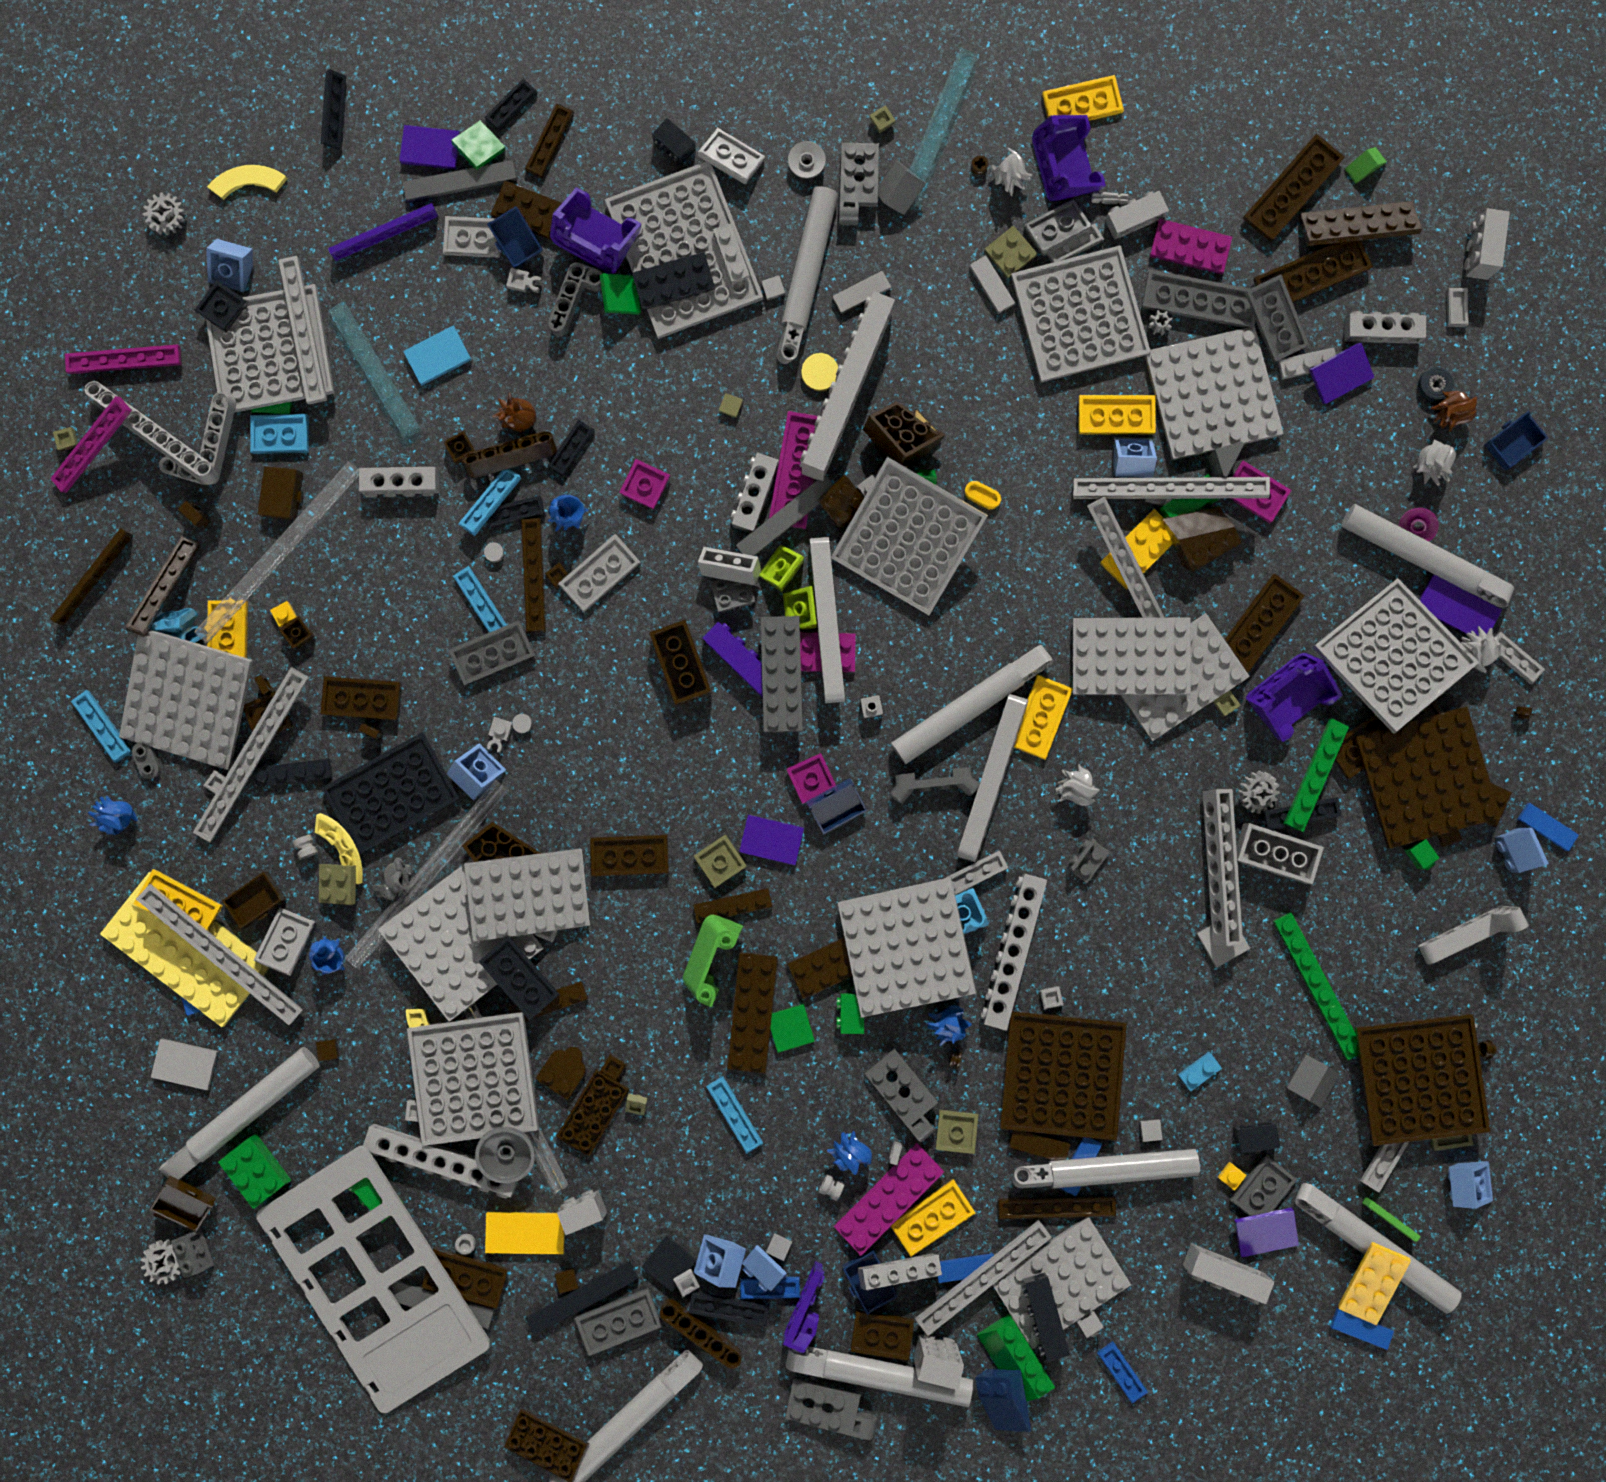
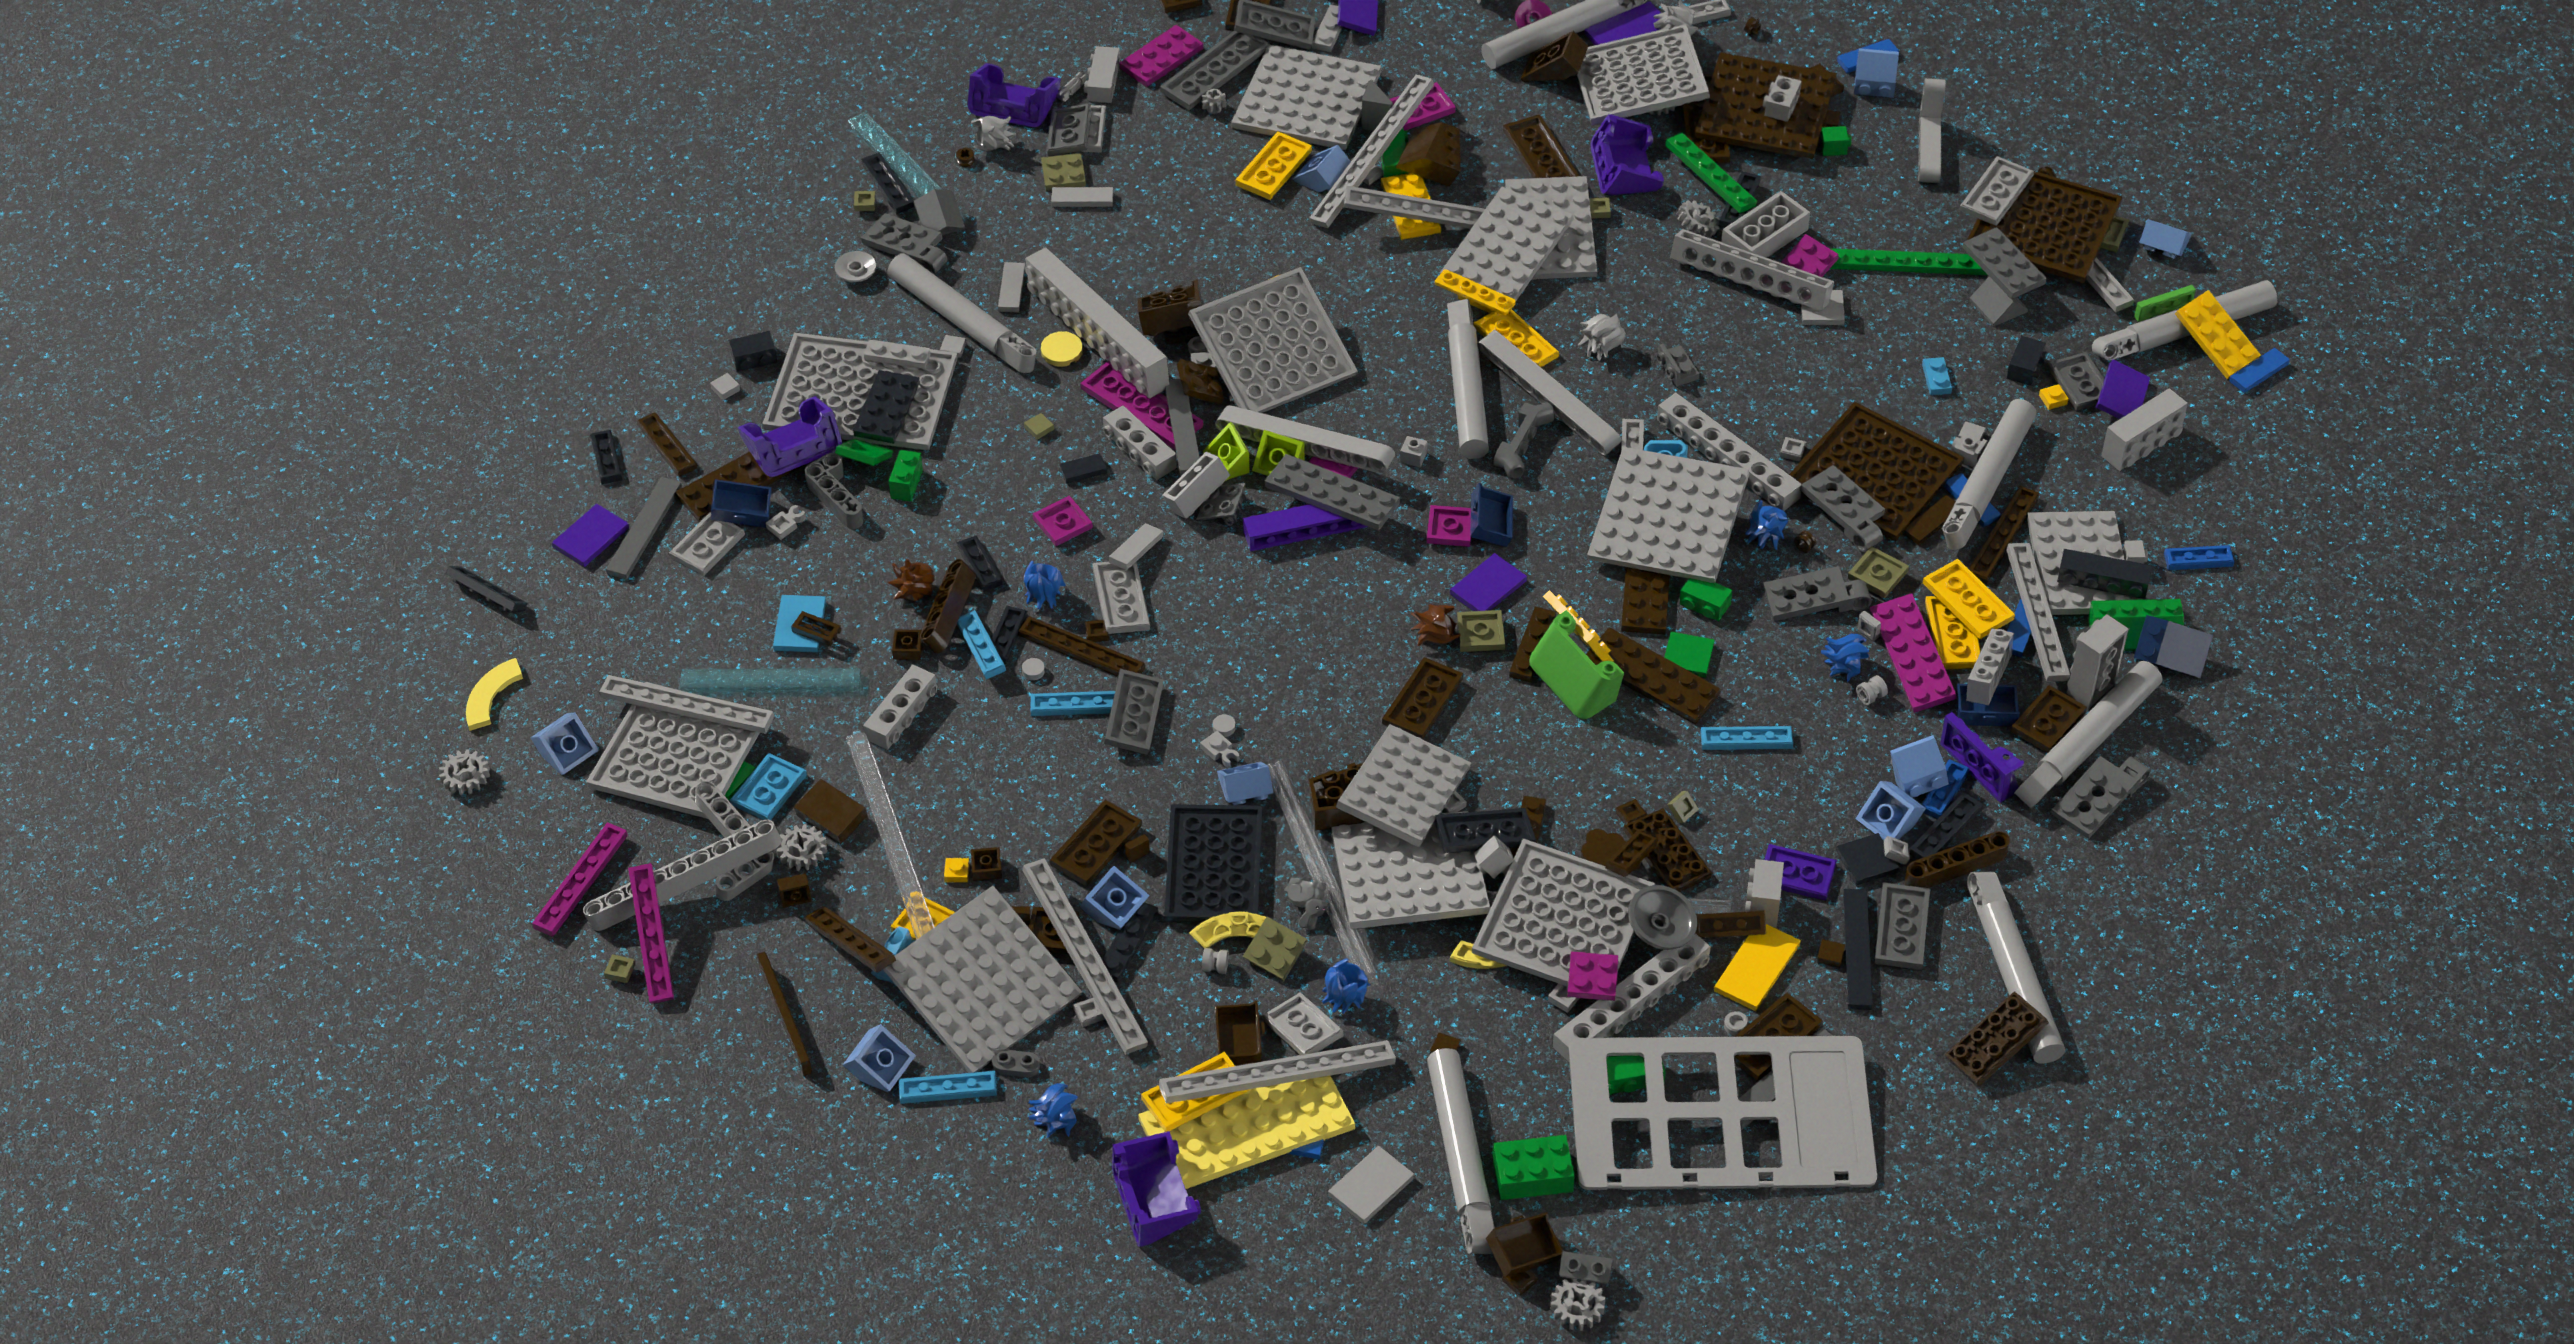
camera: 60 degrees left, 35 degrees down
(81, 926) = (1152, 1187): none -> dark purple windscreen
(89, 667) = (879, 1059): none -> medium blue slope
(221, 306) = (602, 764): black tile -> none
(242, 488) = (812, 844): none -> light grey gear
(312, 745) = (1114, 899): none -> medium blue slope
(383, 232) = (642, 605): dark purple tile -> none
(429, 1130) = (1592, 976): none -> magenta plate
(435, 388) = (814, 631): none -> dark brown tile
(478, 145) = (624, 494): tile -> none
(495, 999) = (1494, 857): none -> light grey brick
(543, 1198) = (1731, 924): none -> dark brown plate
(558, 1097) = (1631, 853): none -> dark brown tile
(617, 340) = (905, 475): none -> green brick
(628, 1217) = (1803, 871): none -> dark purple tile
(630, 144) = (725, 386): none -> light grey tile
(650, 555) = (1135, 546): none -> light grey tile
(680, 663) = (1261, 566): dark brown brick -> none
(699, 827) = (1435, 625): none -> reddish brown hair
(708, 465) = (1083, 468): none -> black tile
(731, 156) = (803, 317): light grey tile -> none
(750, 940) = (1590, 637): none -> yellow plate
(912, 124) = (887, 183): none -> black plate
(964, 1218) = (1968, 598): none -> yellow plate
(1002, 1090) = (1854, 517): none -> dark grey hinge
(1062, 661) = (1478, 295): none -> yellow bracket
(1080, 314) = (1160, 149): light grey plate -> none
(1090, 98) = (968, 58): yellow tile -> none
(1123, 1133) = (1969, 448): none -> light grey brick
(1266, 905) = (1811, 257): none -> magenta plate
(1348, 1073) = (2004, 263): none -> dark grey plate
(1374, 574) = (1556, 60): none -> dark brown slope
(1432, 1025) = (1996, 190): none -> light grey tile
(1434, 795) = (1782, 98): none -> light grey brick

